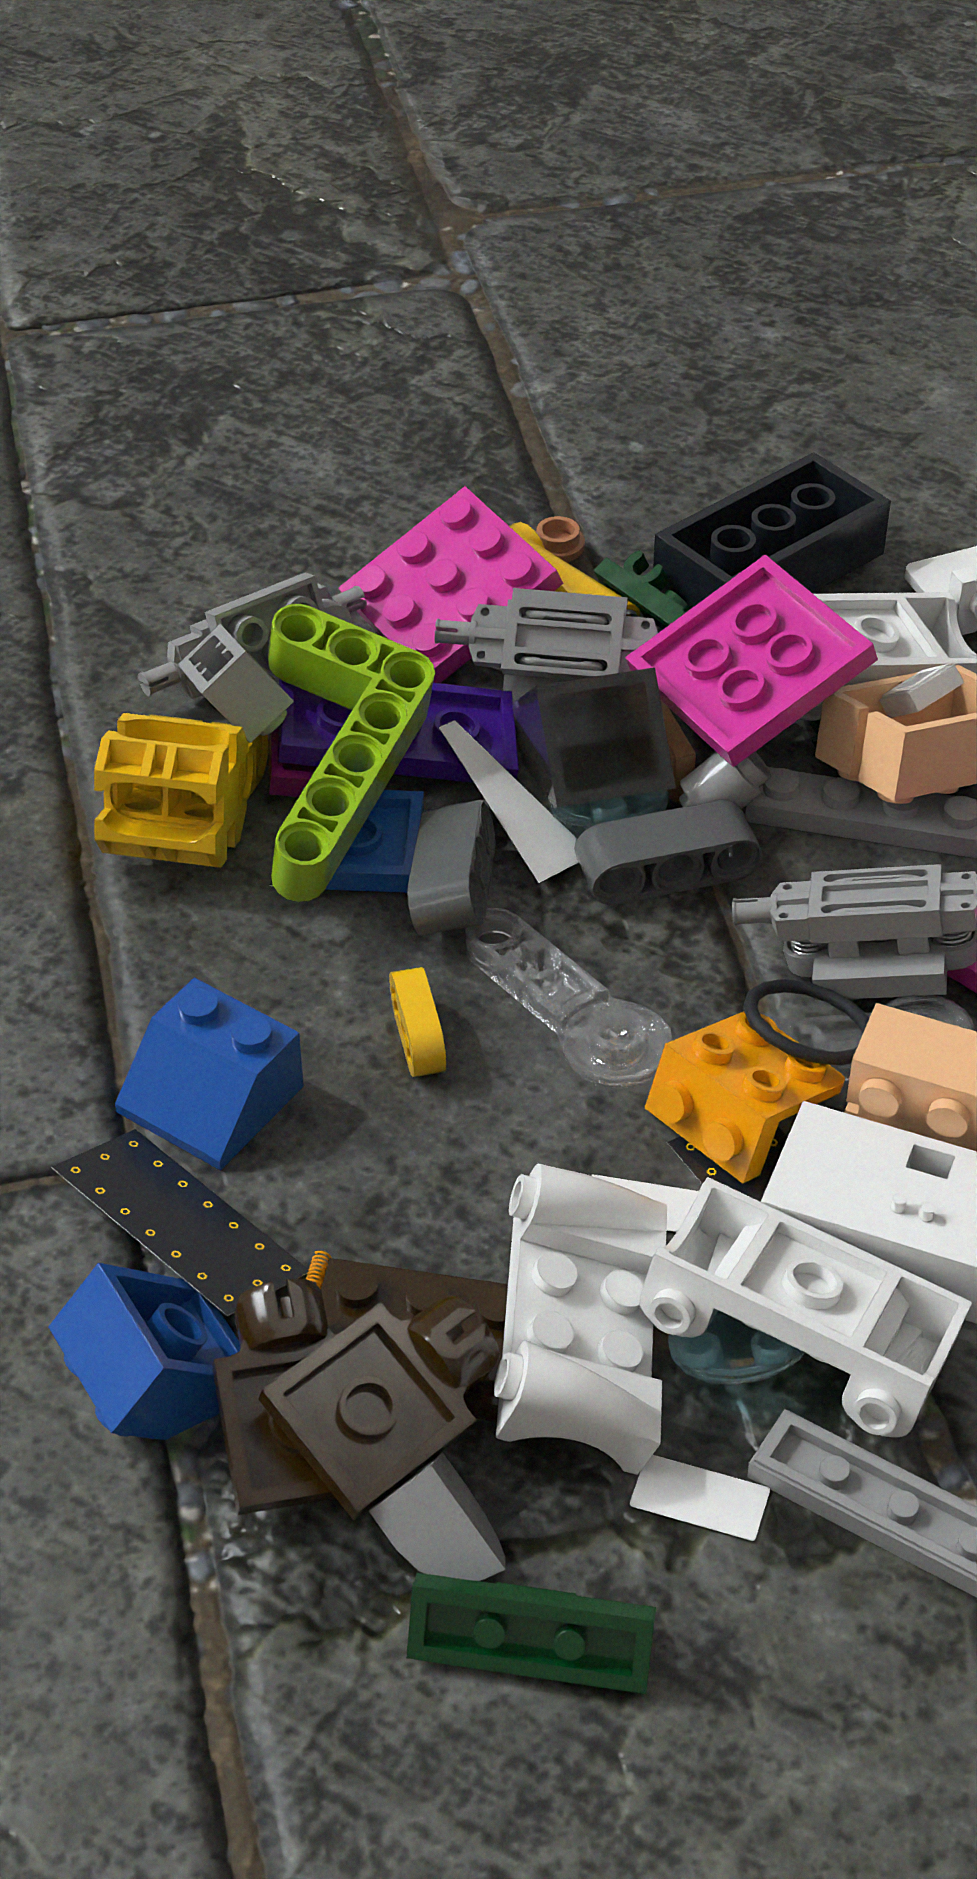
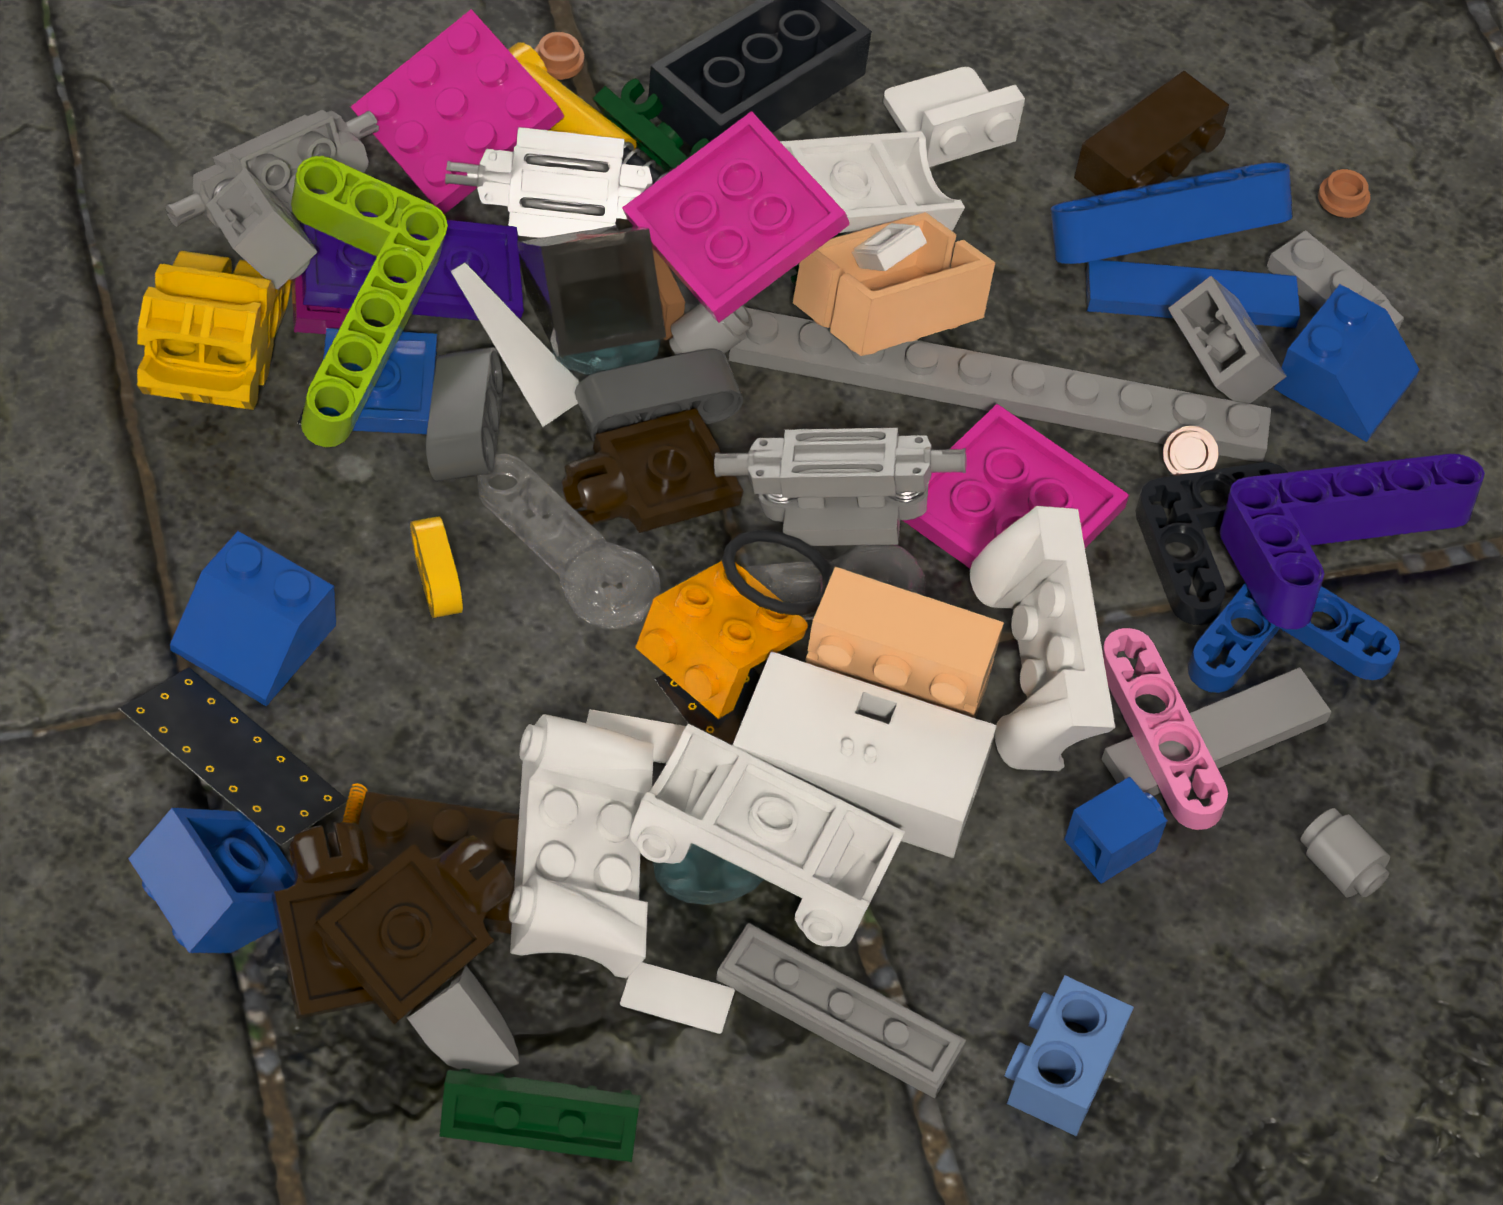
camera: 10 degrees left, 10 degrees up
(661, 928) = (651, 474): none -> dark brown plate

